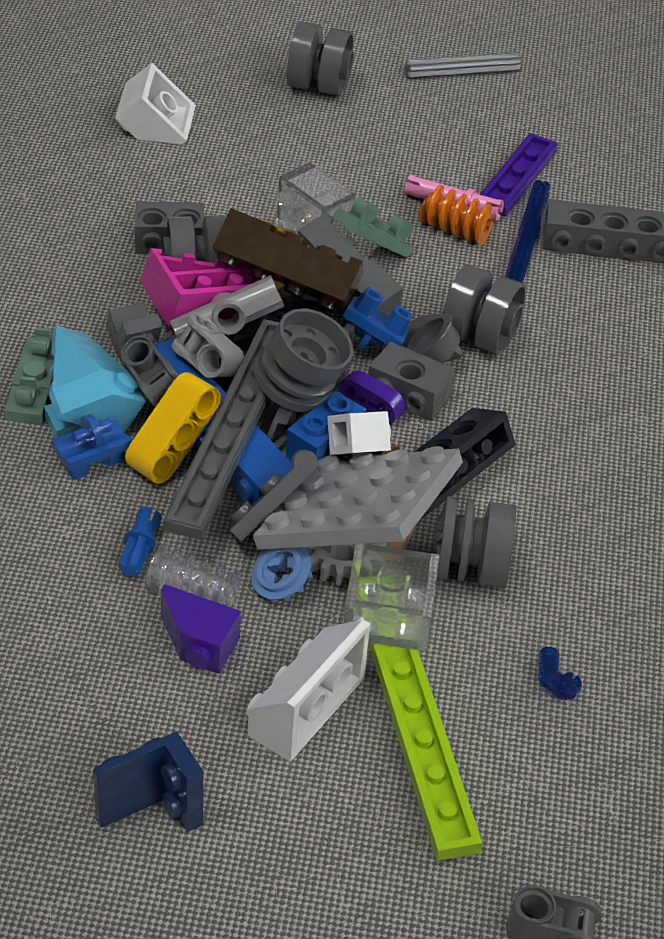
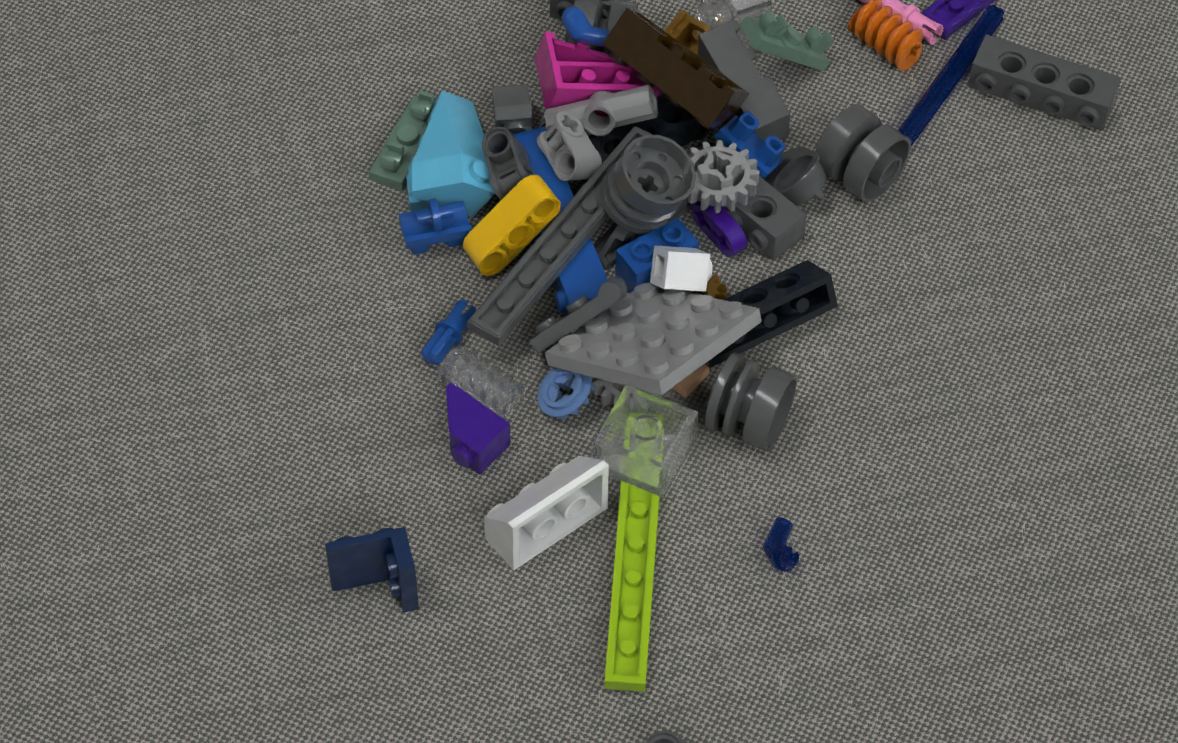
camera: 20 degrees right, 10 degrees up
(185, 241) = (581, 29): none -> blue arm
(368, 343) = (719, 176): none -> light grey gear

